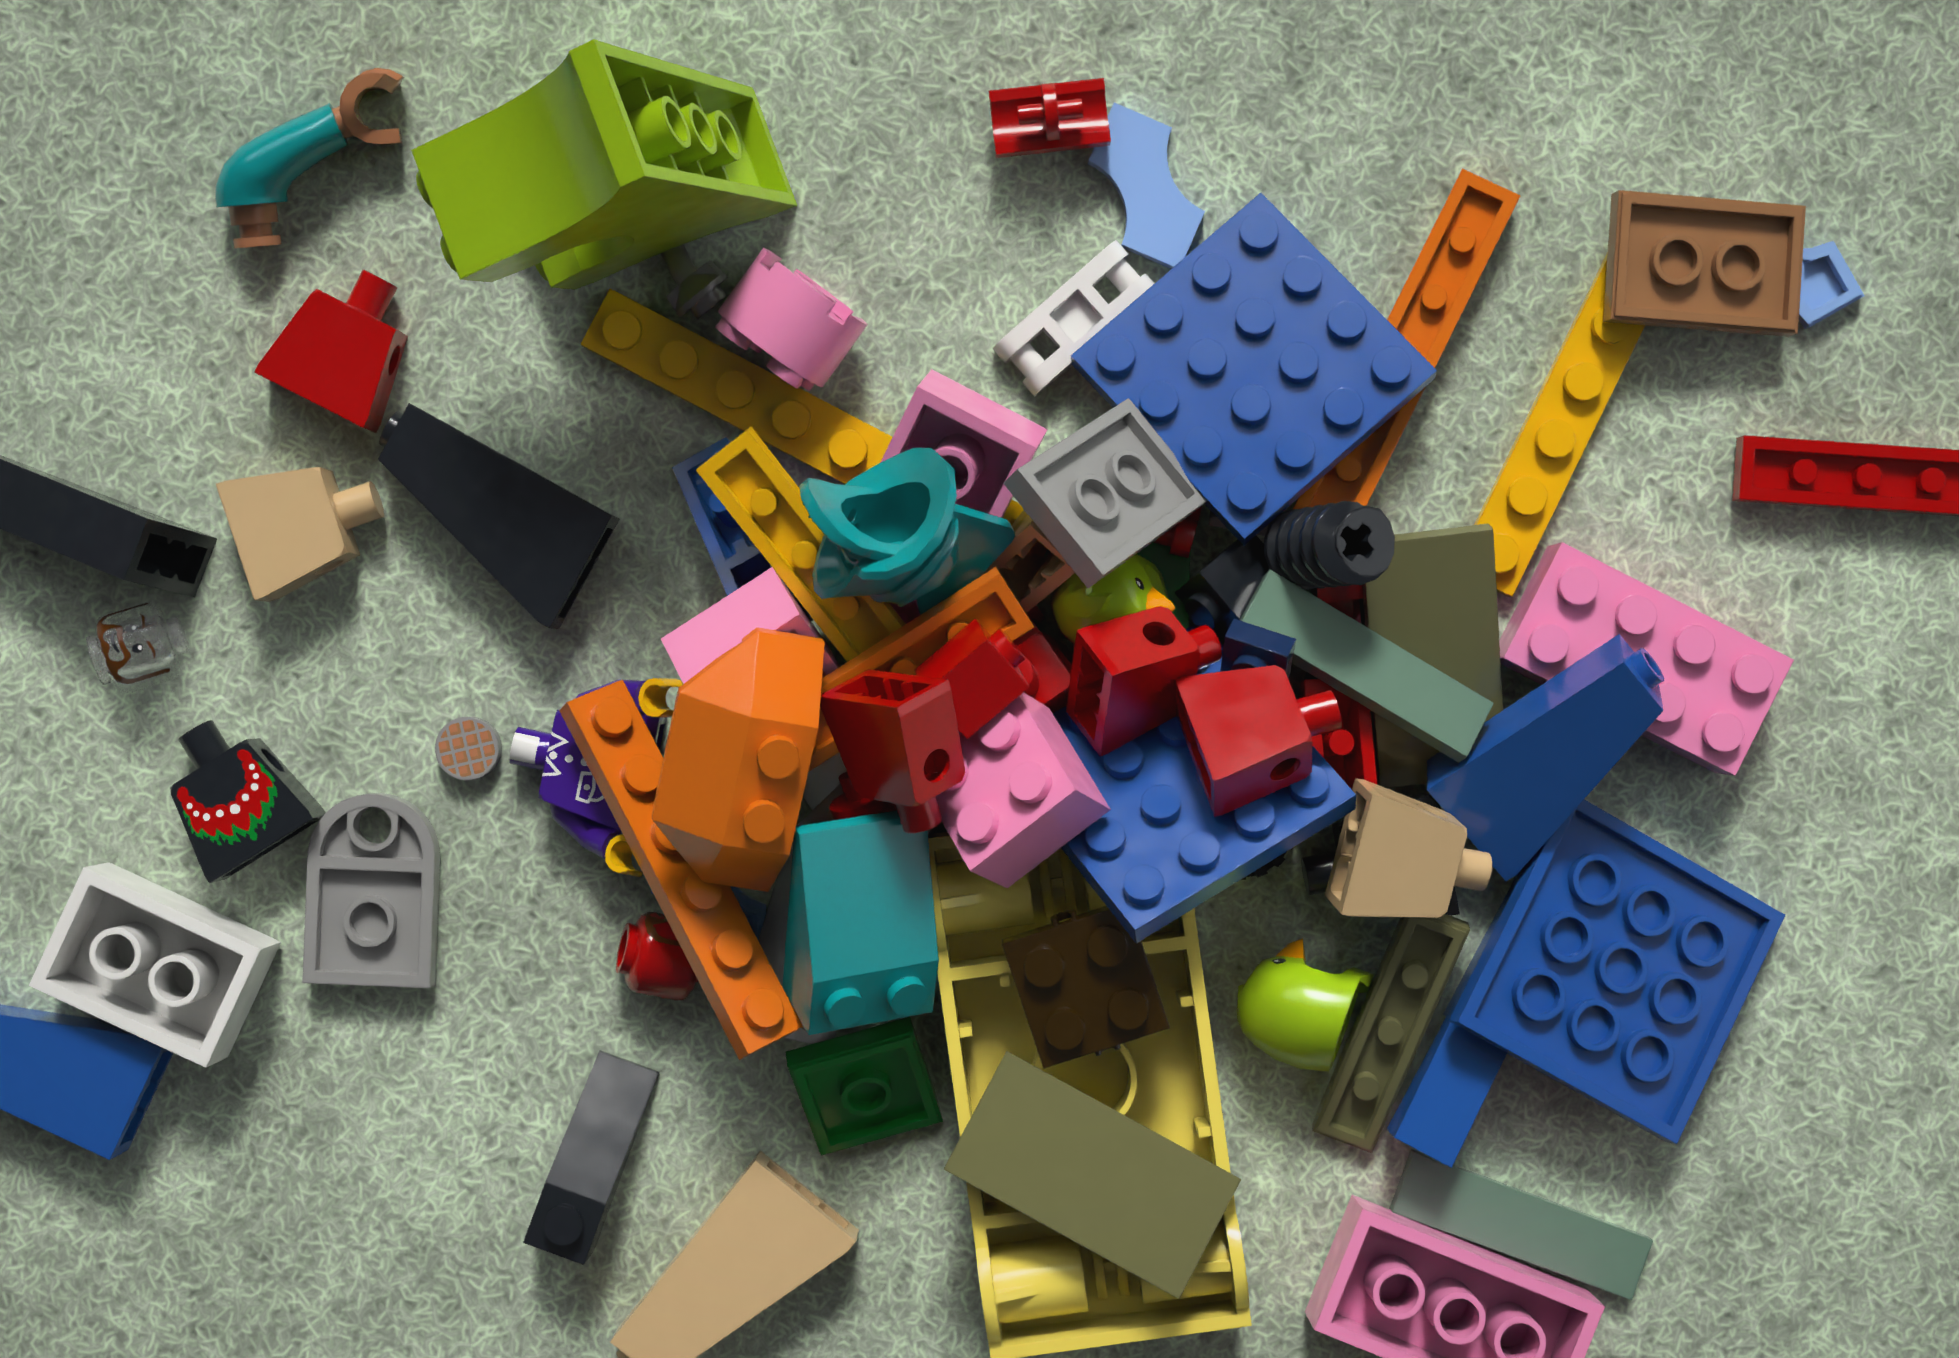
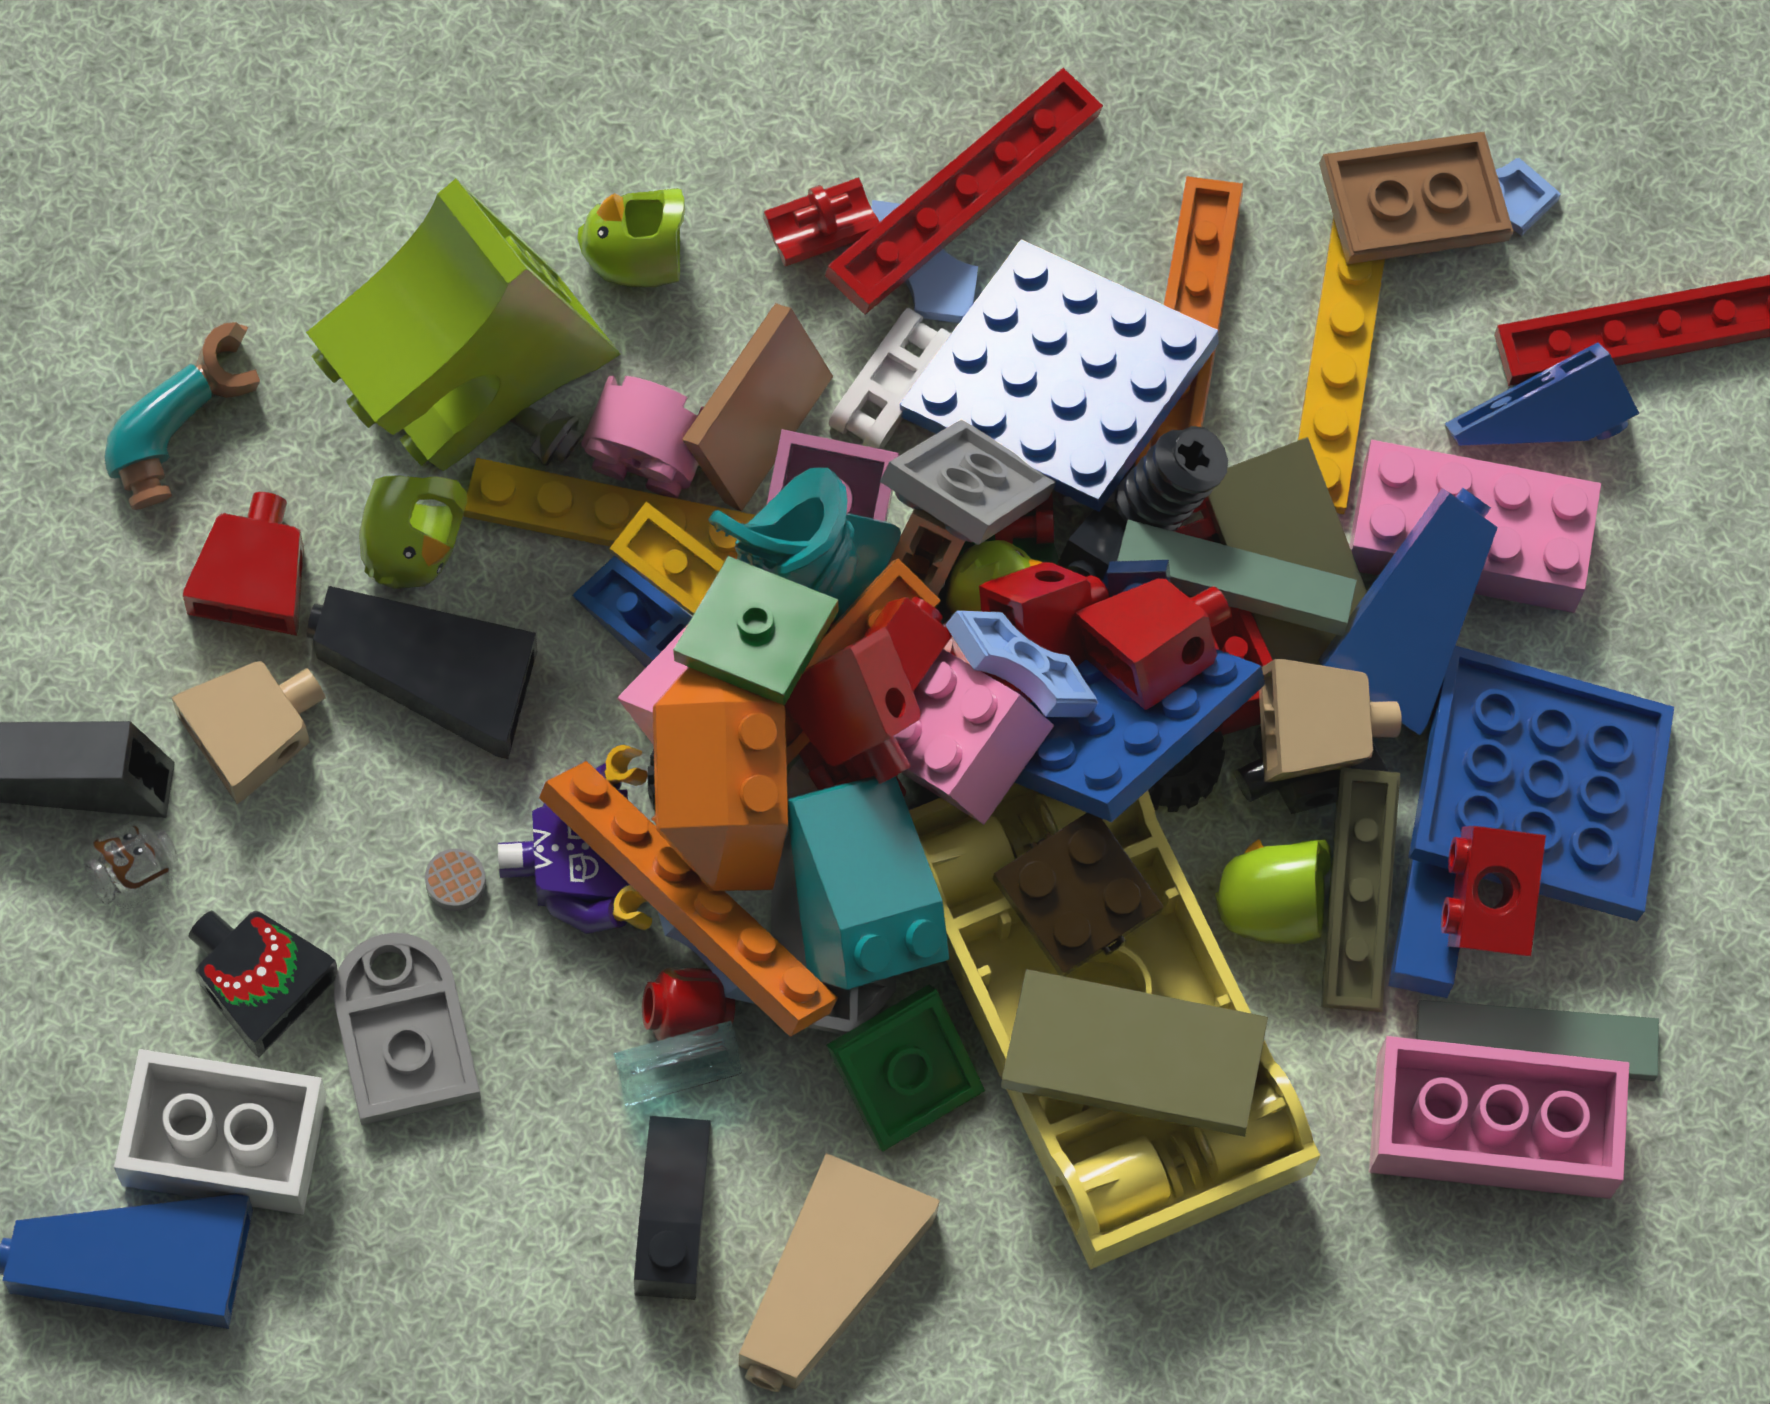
camera: 20 degrees left, 20 degrees down
(511, 362) = (409, 541): none -> lime piece
(637, 1013) = (677, 1063): none -> clear light blue tile
(810, 638) = (756, 630): none -> plate
(842, 85) = (635, 238): none -> lime piece
(917, 320) = (761, 394): none -> medium nougat tile
(1076, 717) = (1001, 650): none -> light blue tile
(1214, 122) = (963, 191): none -> red plate
(1526, 1132) = (1518, 864): none -> red brick
(1774, 547) = (1561, 404): none -> blue slope

